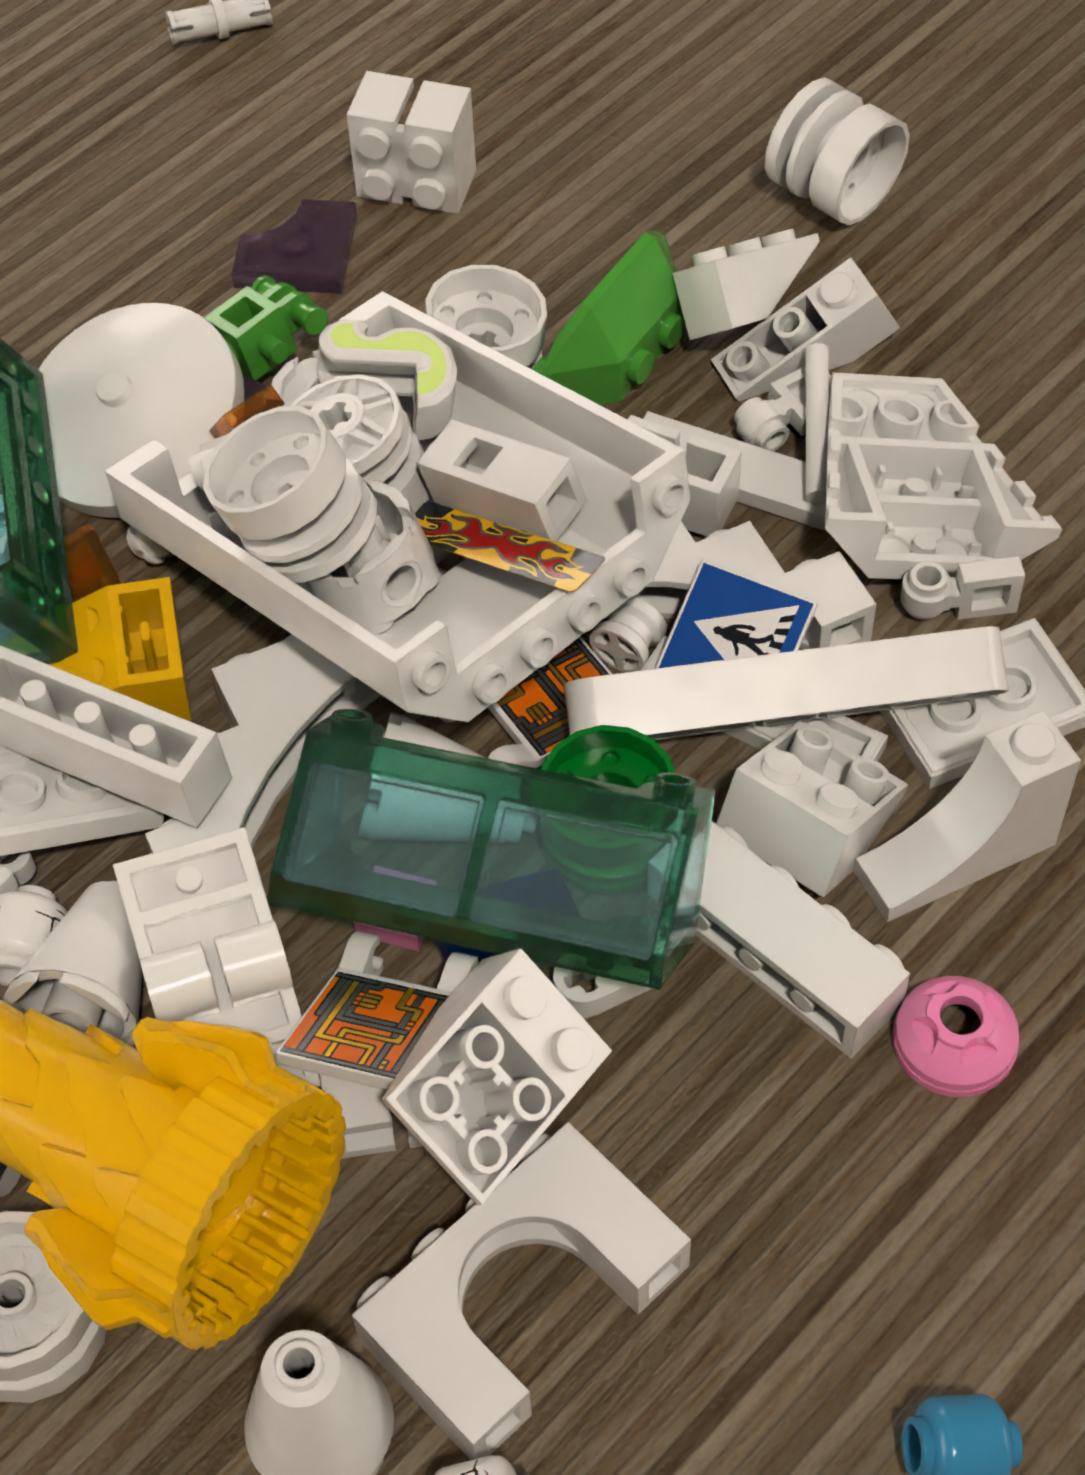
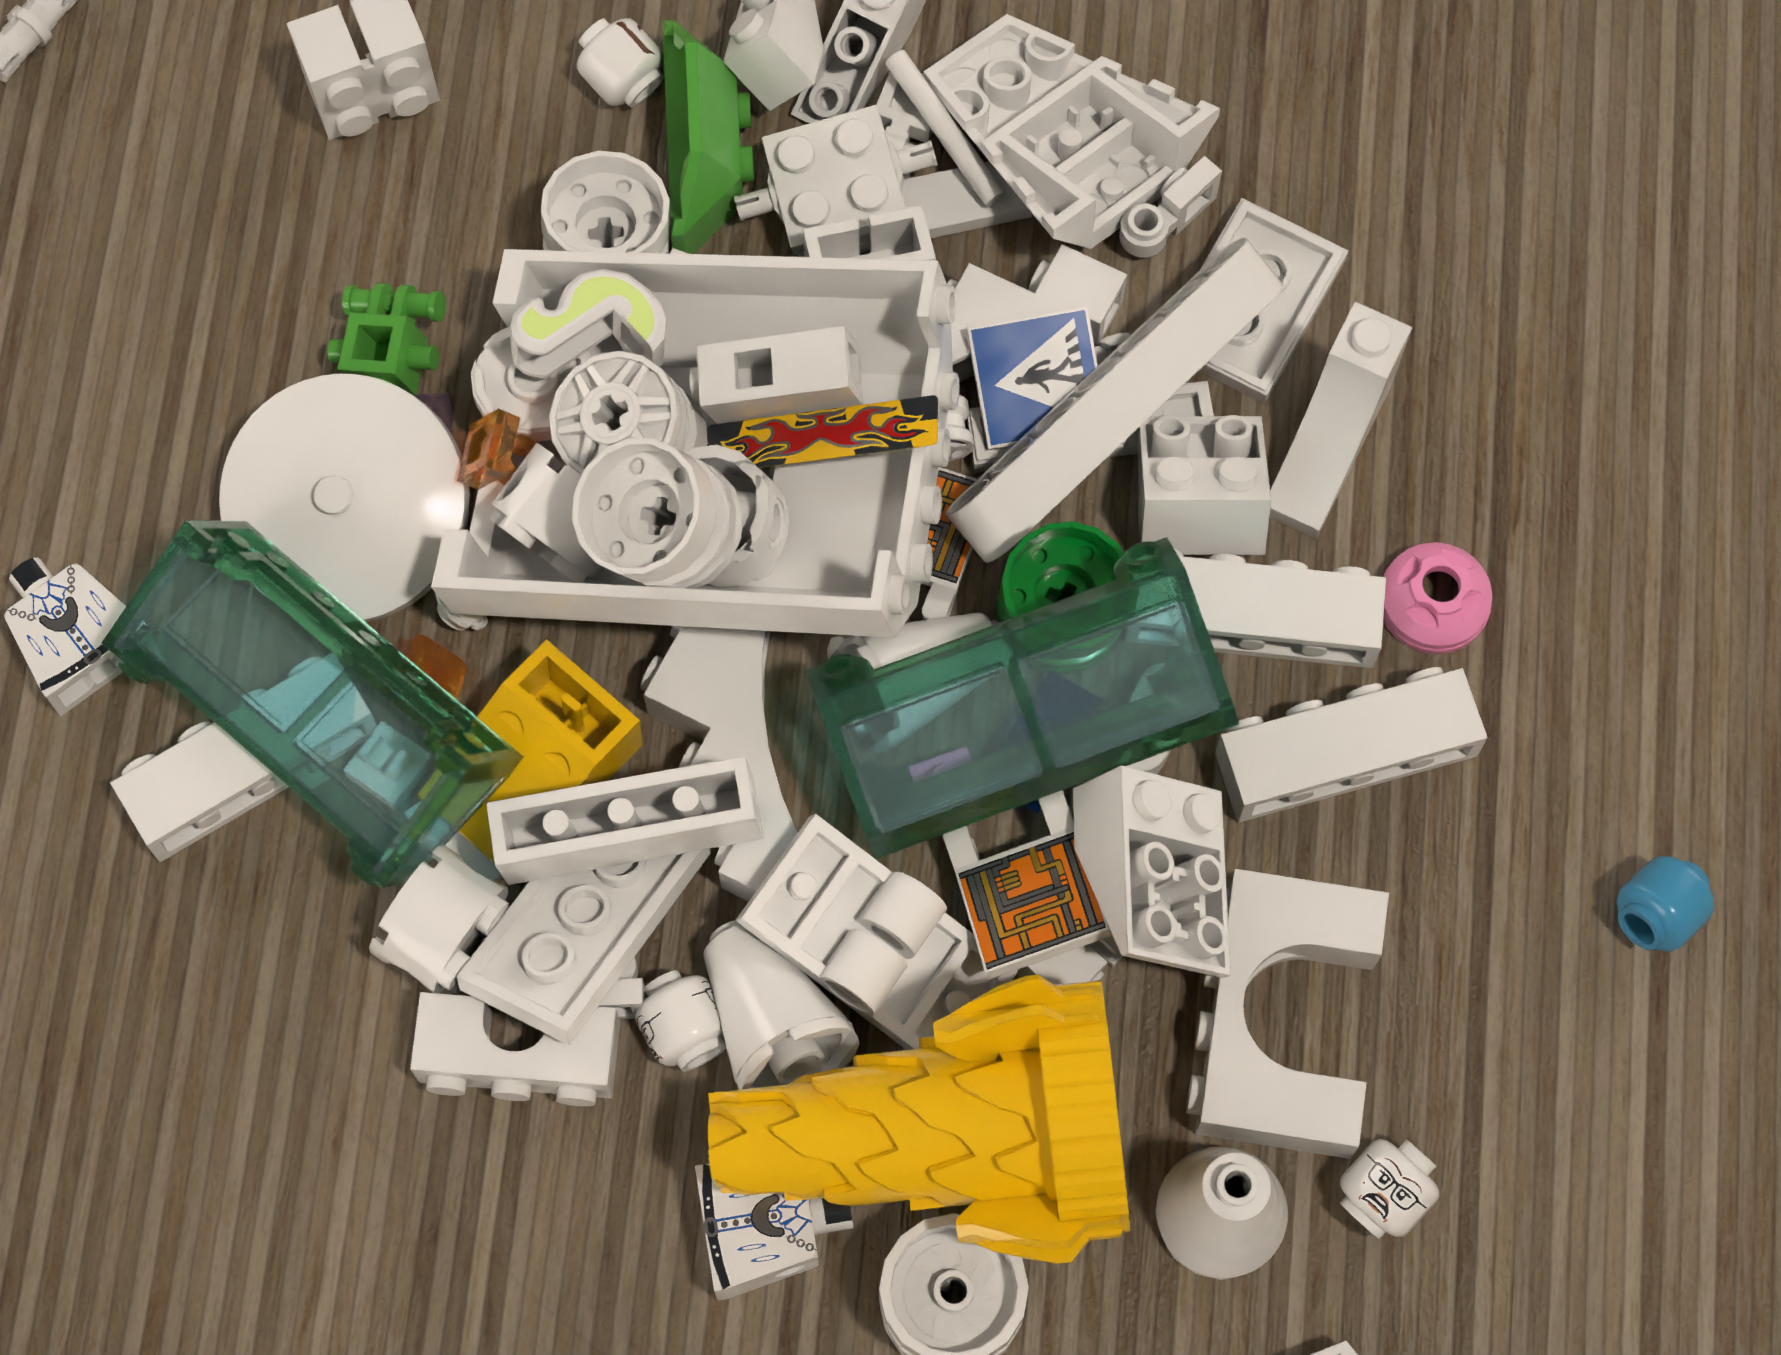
camera: 40 degrees left, 15 degrees up
(305, 251) = (336, 234): tile -> none
(599, 243) = (620, 62): none -> white head
(702, 398) = (833, 173): none -> white plate
(770, 1098) = (1349, 743): none -> white brick

